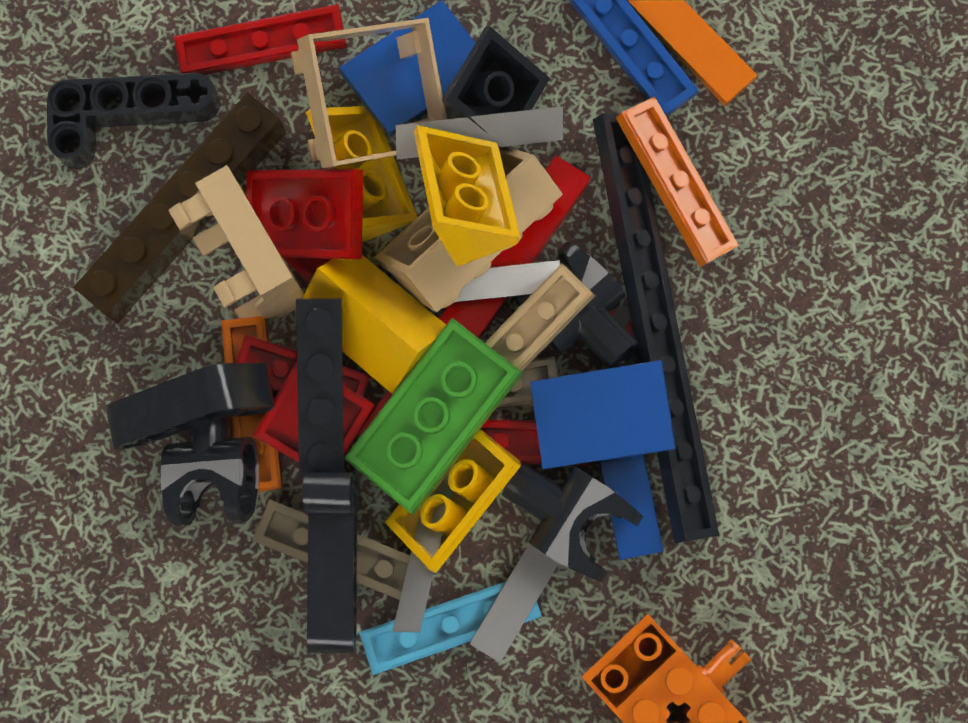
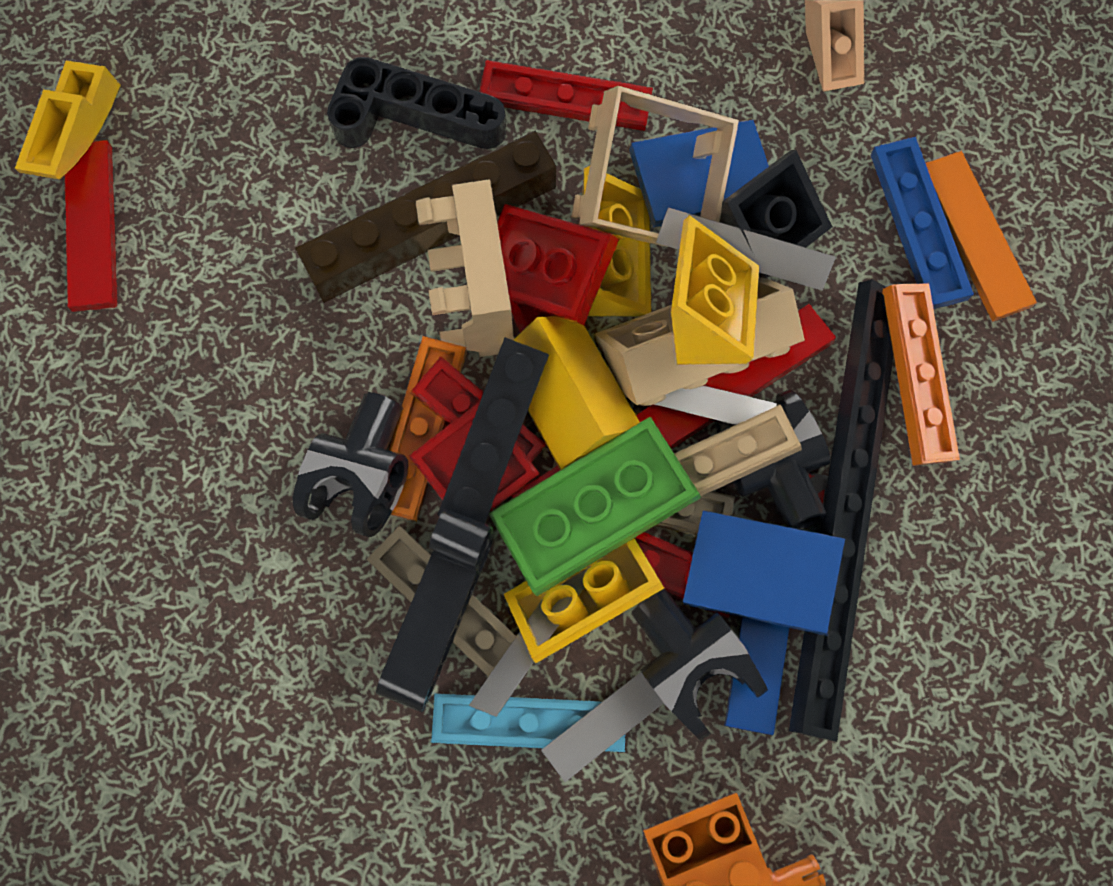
camera: 15 degrees right, 5 degrees down
(189, 403) = (361, 398): black beam -> none

